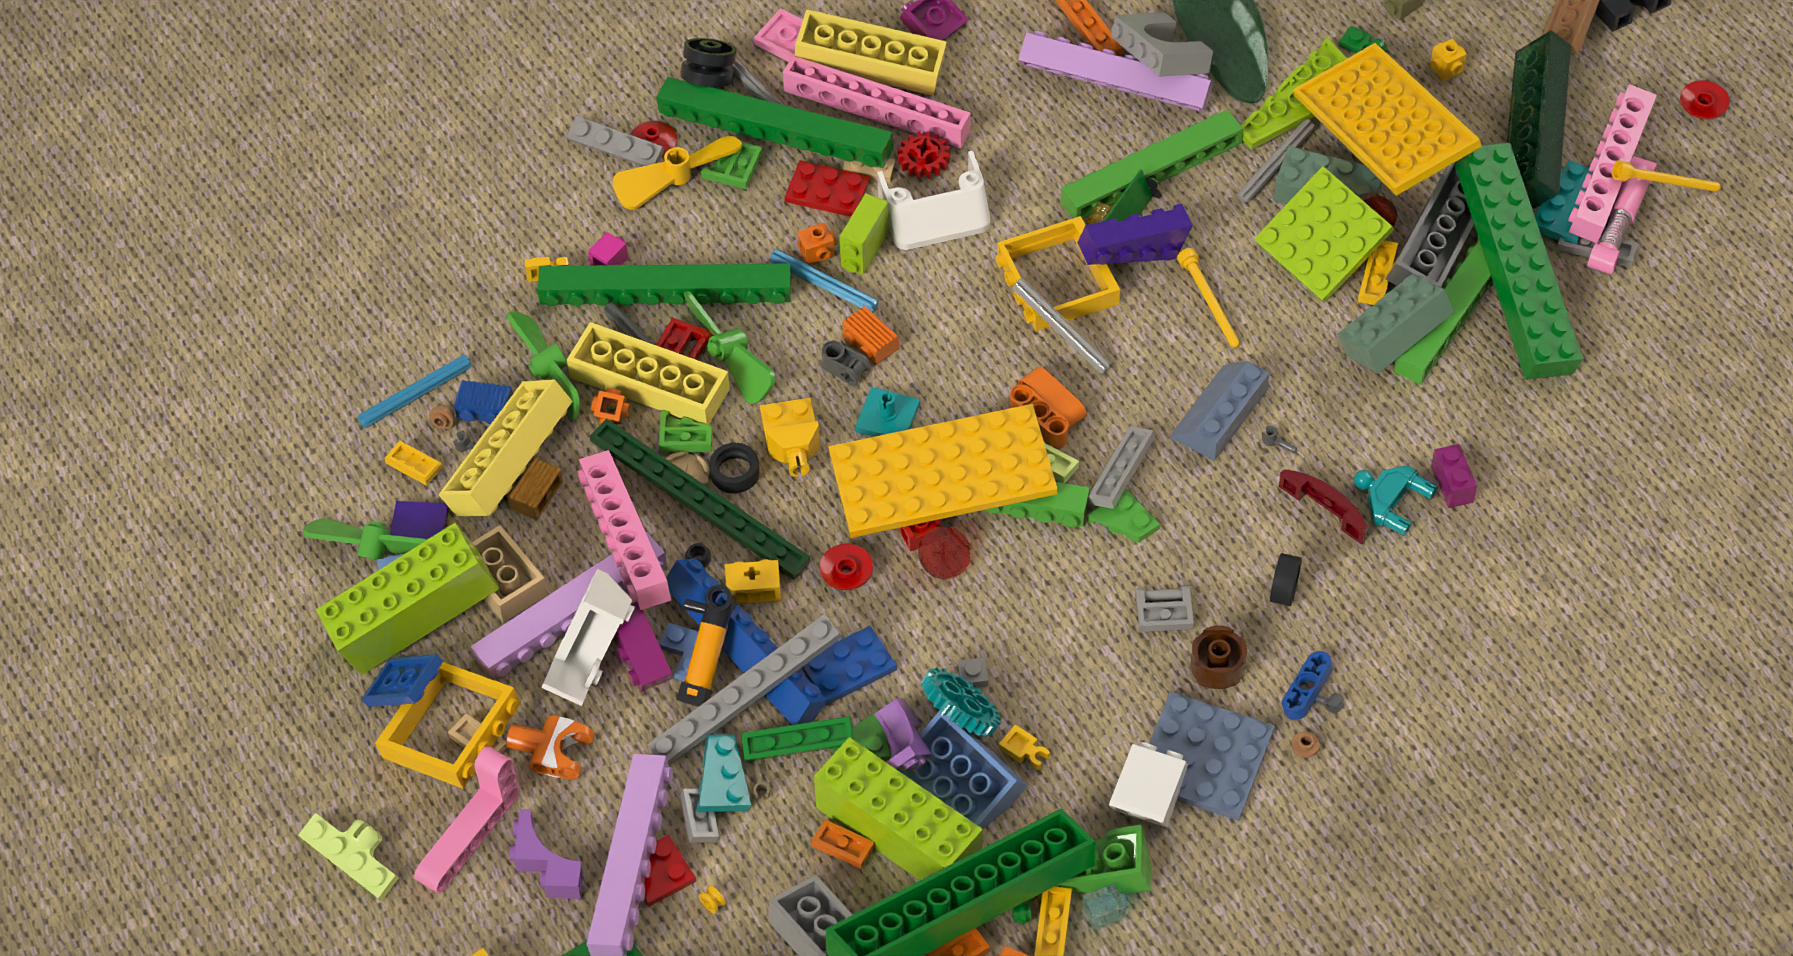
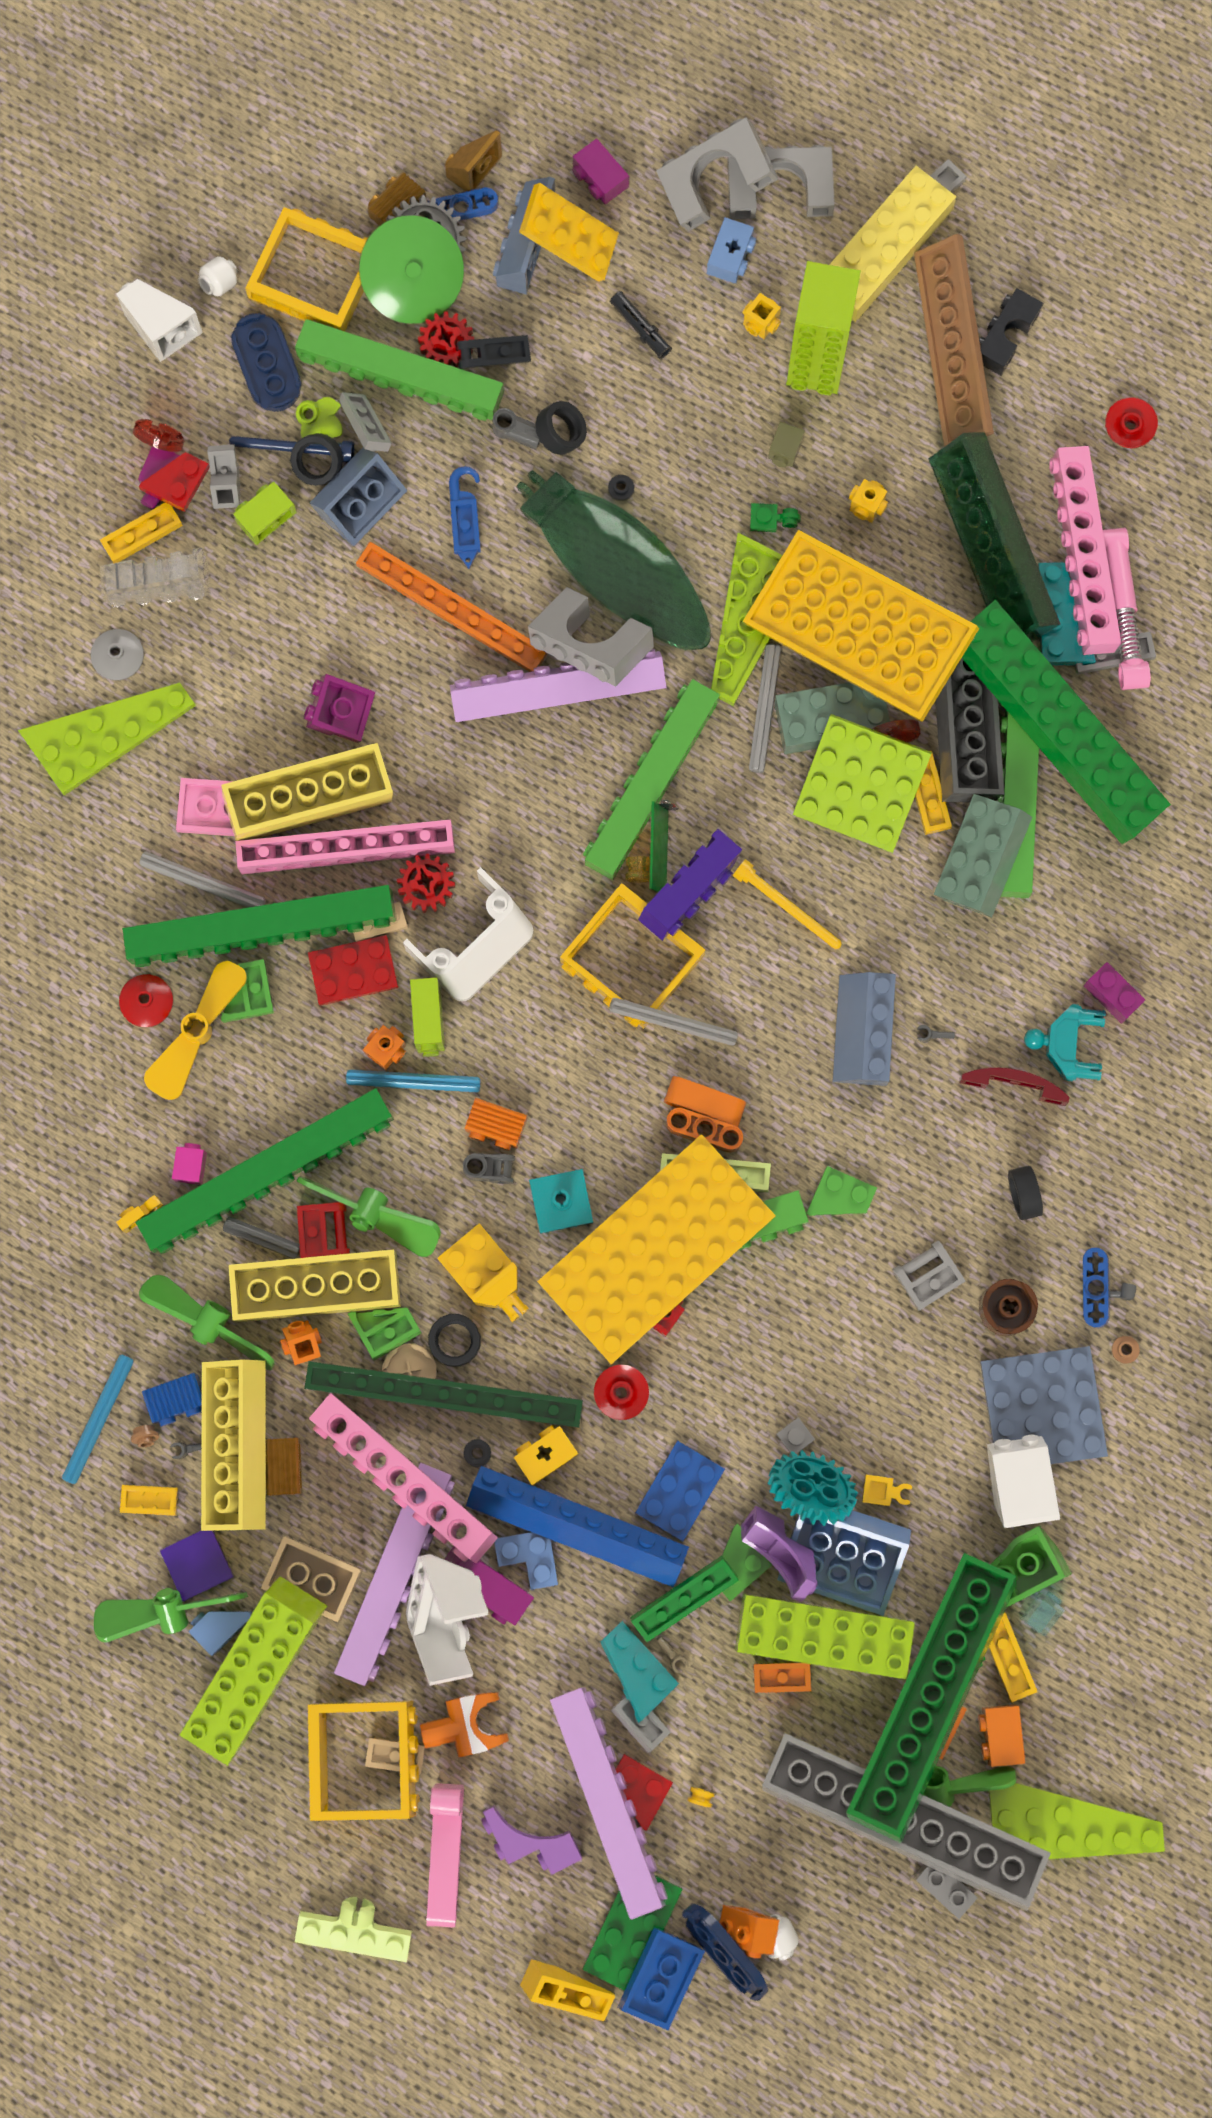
camera: 30 degrees left, 25 degrees up
(402, 680) = (295, 1745): blue plate -> none
(614, 142) = (114, 1028): light grey plate -> none
(708, 62) = (154, 891): black wheel -> none
(708, 645) = (553, 1557): piece -> none
(745, 690) = (614, 1584): light grey plate -> none
(944, 552) = (702, 1328): clear red tile -> none
(1121, 467) = (811, 1147): light grey plate -> none
(1625, 171) = (1110, 565): yellow piece -> none

